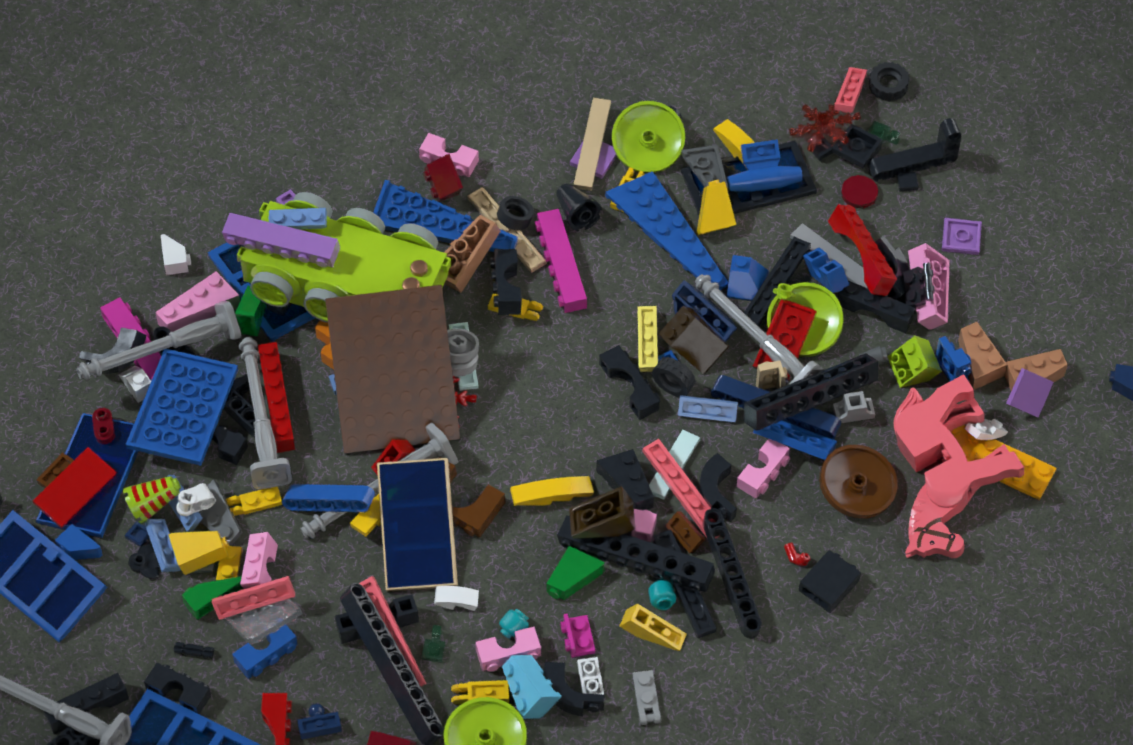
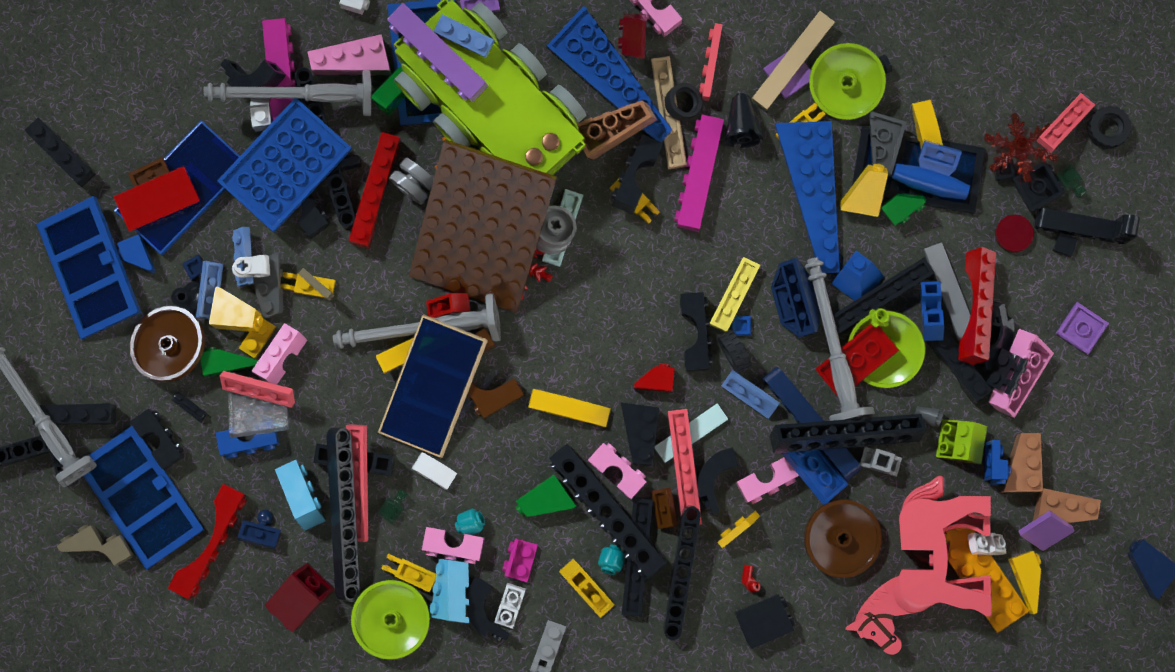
camera: 25 degrees right, 25 degrees up
(103, 424) = (213, 144): dark red plate -> none
(146, 602) = (167, 344): none -> reddish brown dish
(150, 497) = (214, 243): lime cone -> none
(263, 490) = (316, 284): none -> dark tan tile
(270, 470) = (342, 229): light grey piece -> none
(308, 371) = (413, 181): none -> light grey wheel
(328, 498) = (368, 322): blue beam -> none
(343, 671) = (300, 495): none -> medium azure wedge
(519, 169) = (711, 53): none -> coral plate
(603, 515) = (594, 466): dark brown slope -> none
(618, 434) = (657, 379): none -> red slope
(694, 339) = (774, 320): dark brown slope -> none
(751, 207) = (901, 206): none -> green slope
(762, 509) = (741, 525): none -> yellow wing
(771, 375) = (821, 391): tan bracket -> none
(1036, 439) = (1027, 574): none -> yellow slope

